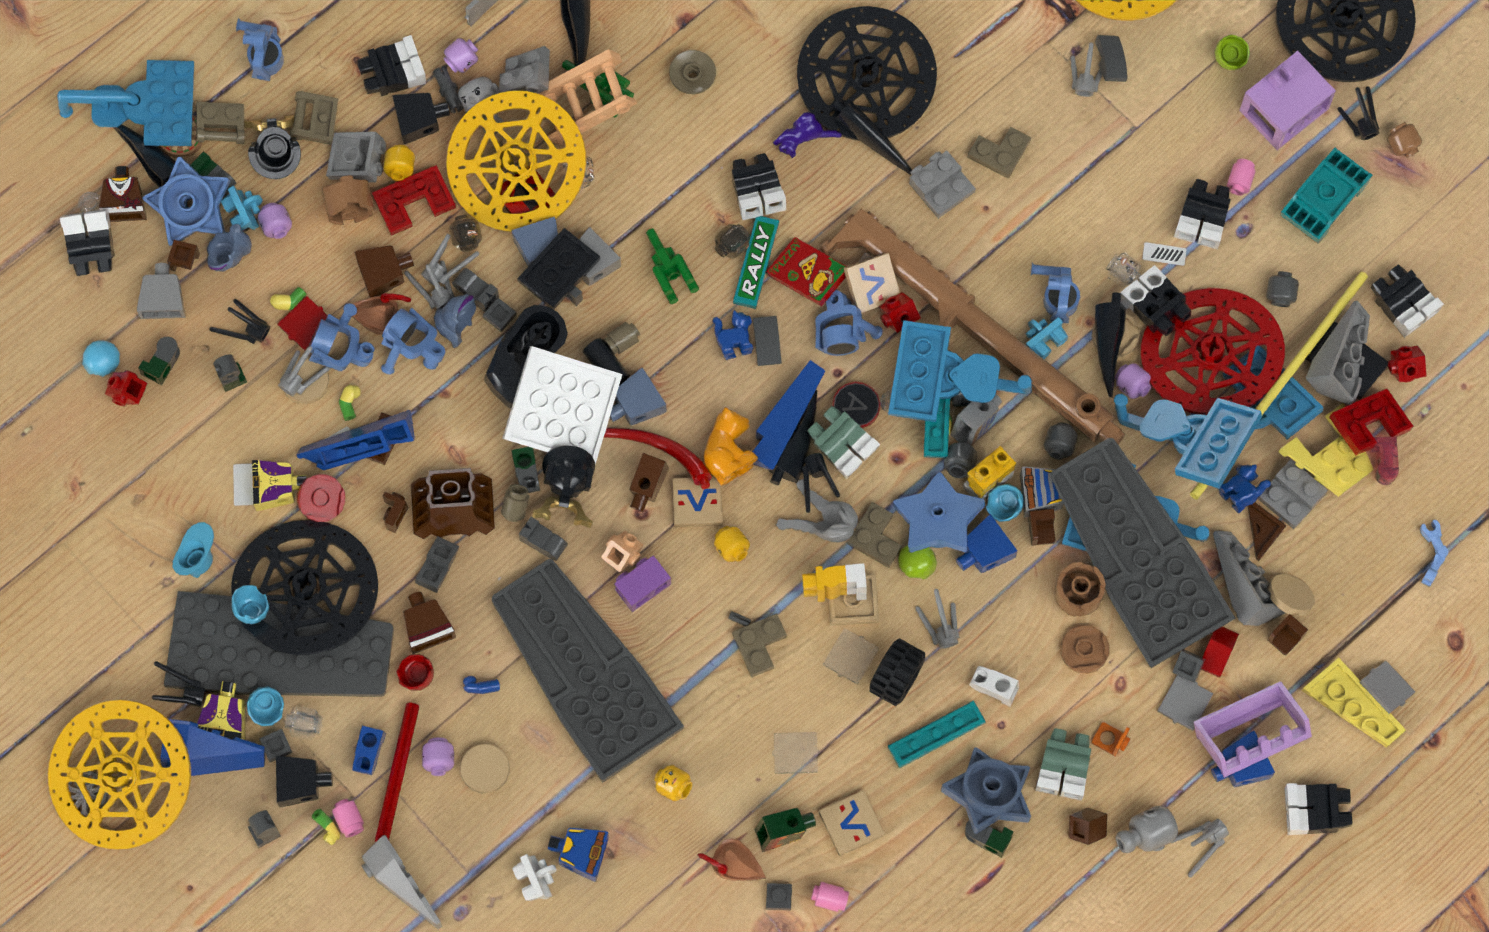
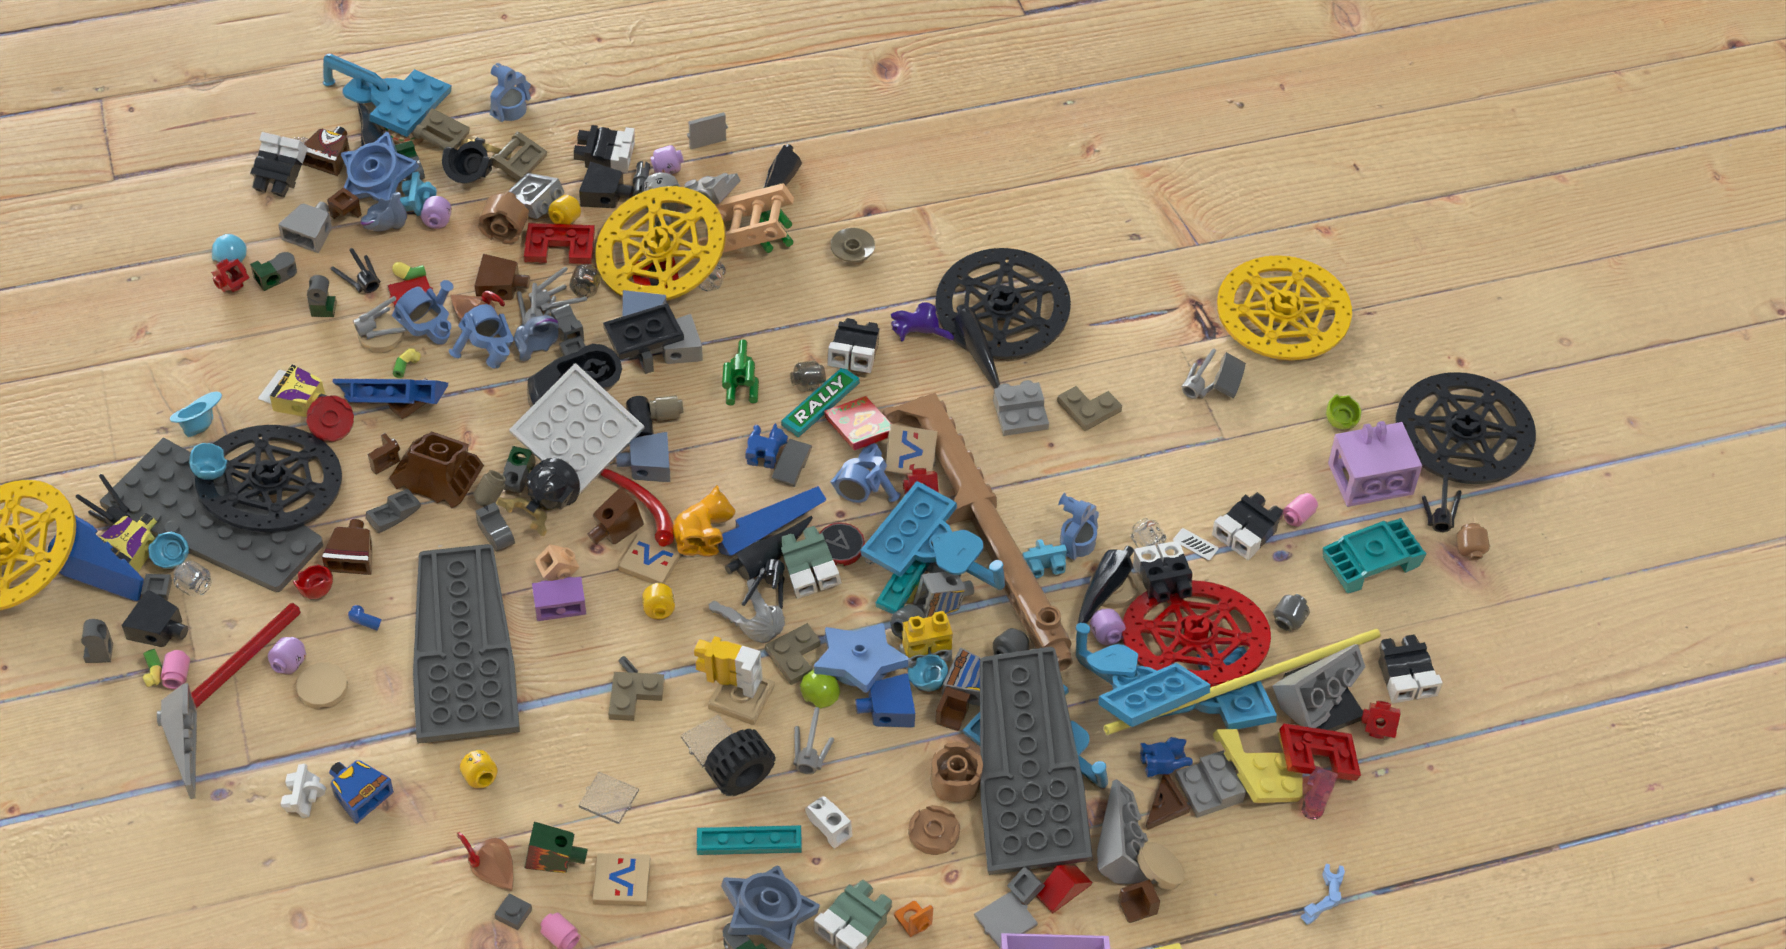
camera: 25 degrees right, 20 degrees down
(368, 750) = (231, 623): blue leg -> none

